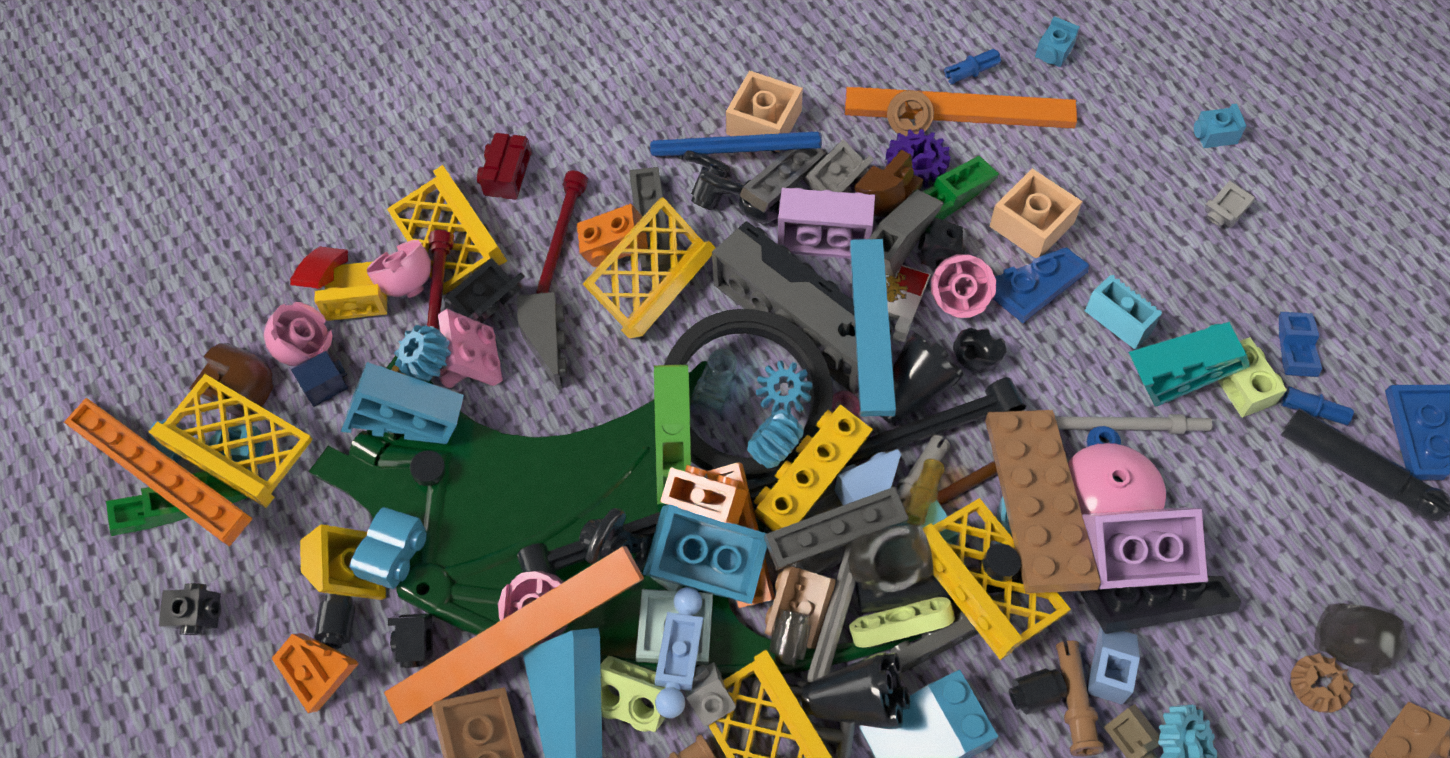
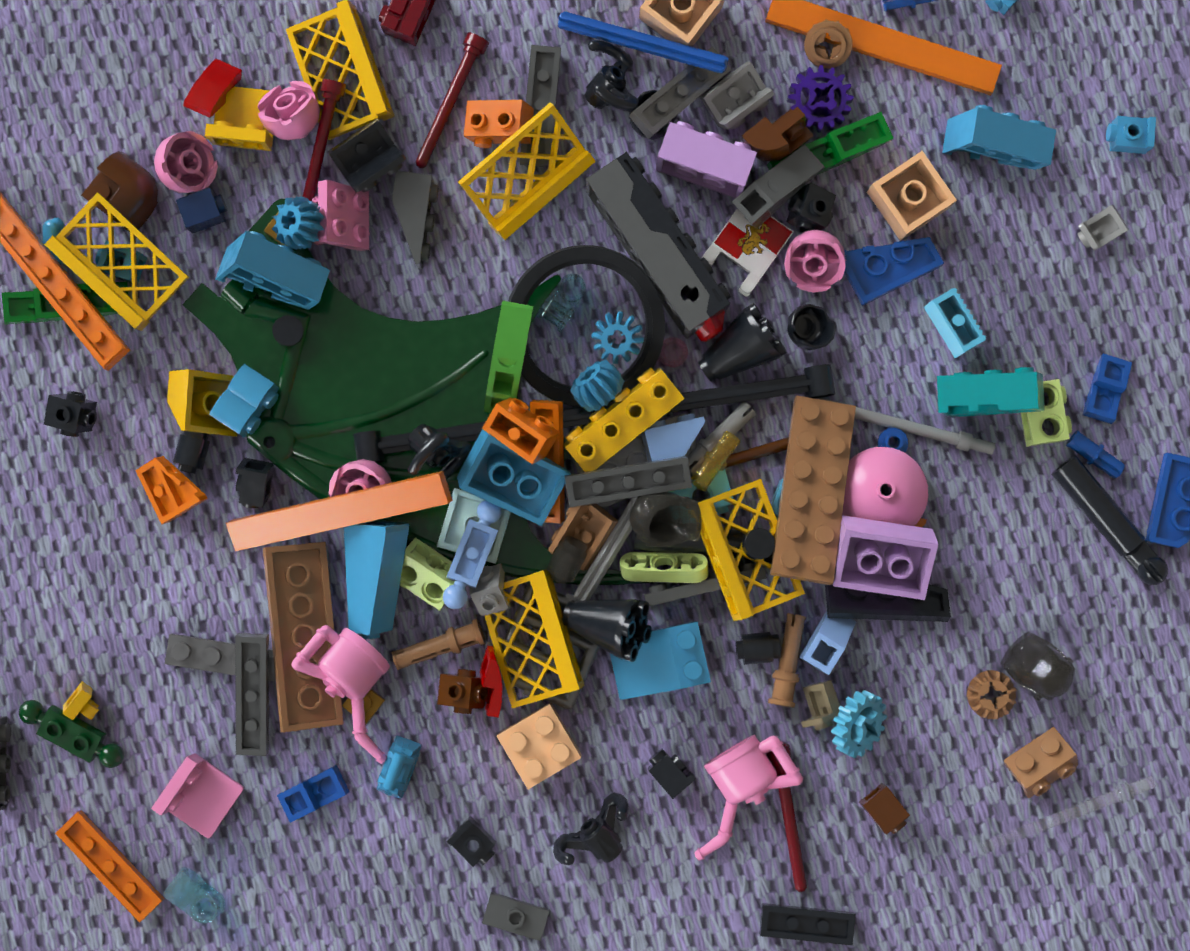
camera: 10 degrees right, 25 degrees up
(872, 328) = (712, 297): dark azure tile -> none
(1099, 149) = (1000, 137): none -> dark azure wedge

